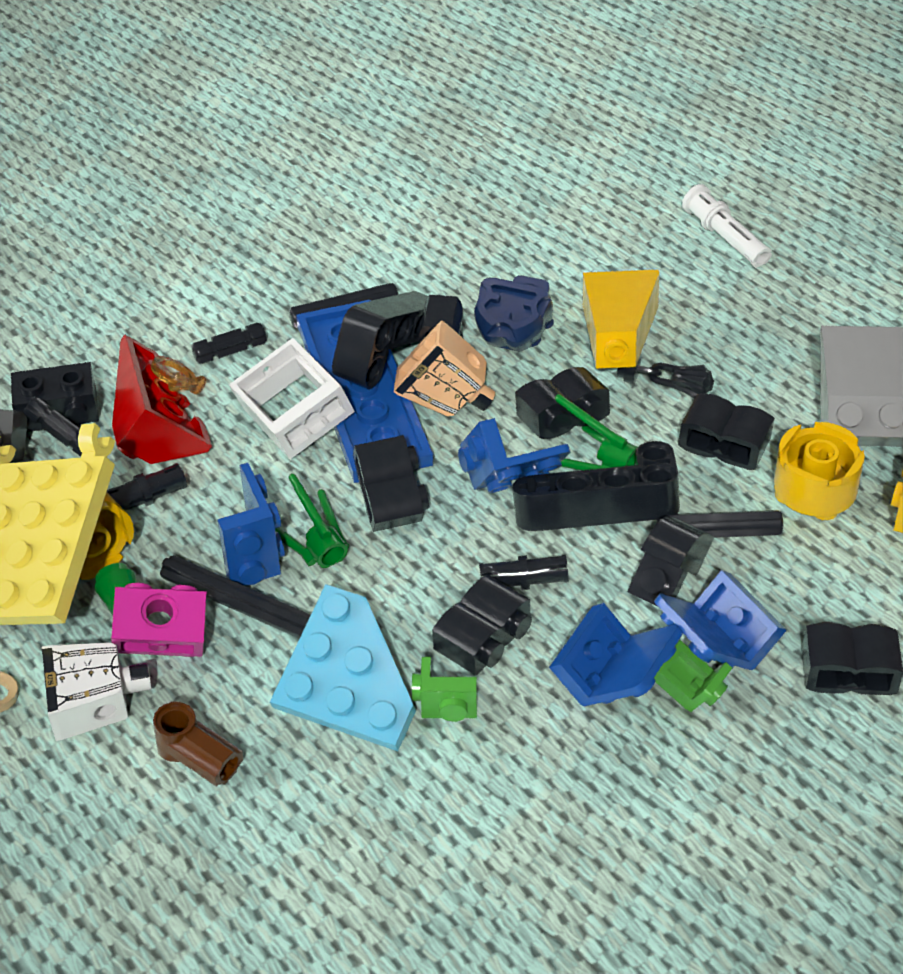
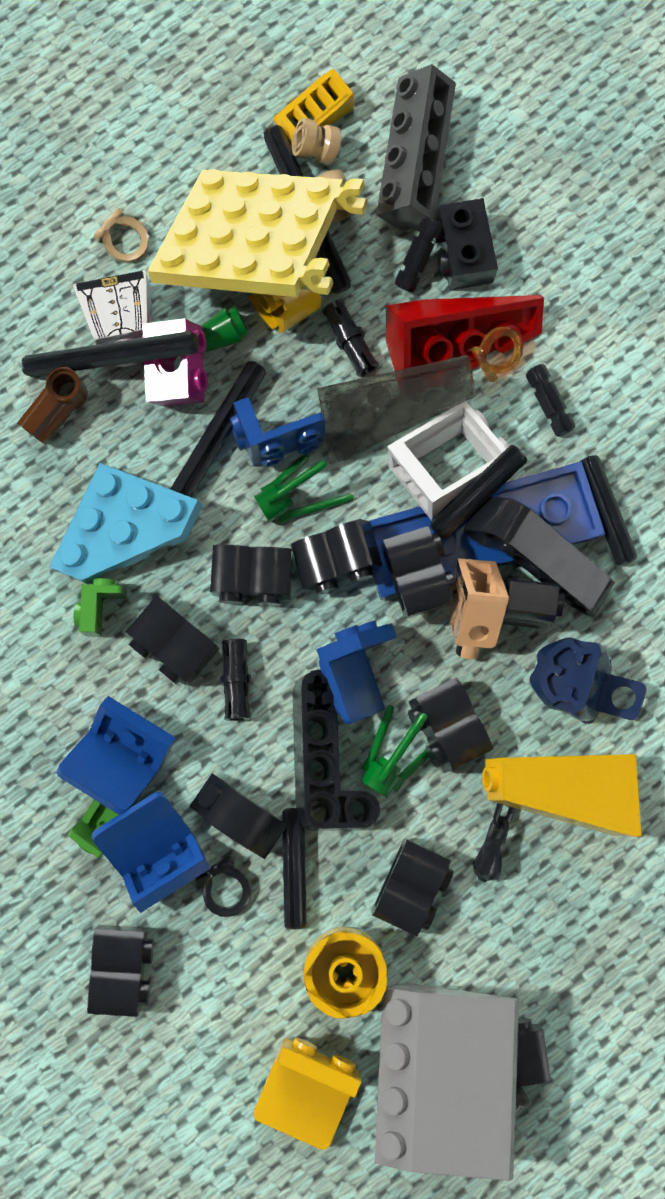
camera: 85 degrees right, 35 degrees up
(143, 676) = (112, 353): none -> black axle
(223, 441) = (386, 404): none -> clear smoke wing
(324, 354) = (478, 491): none -> black axle
(405, 559) = (251, 573): none -> black brick
(416, 411) = (418, 572): none -> black brick
(757, 566) = (224, 866): none -> black piece

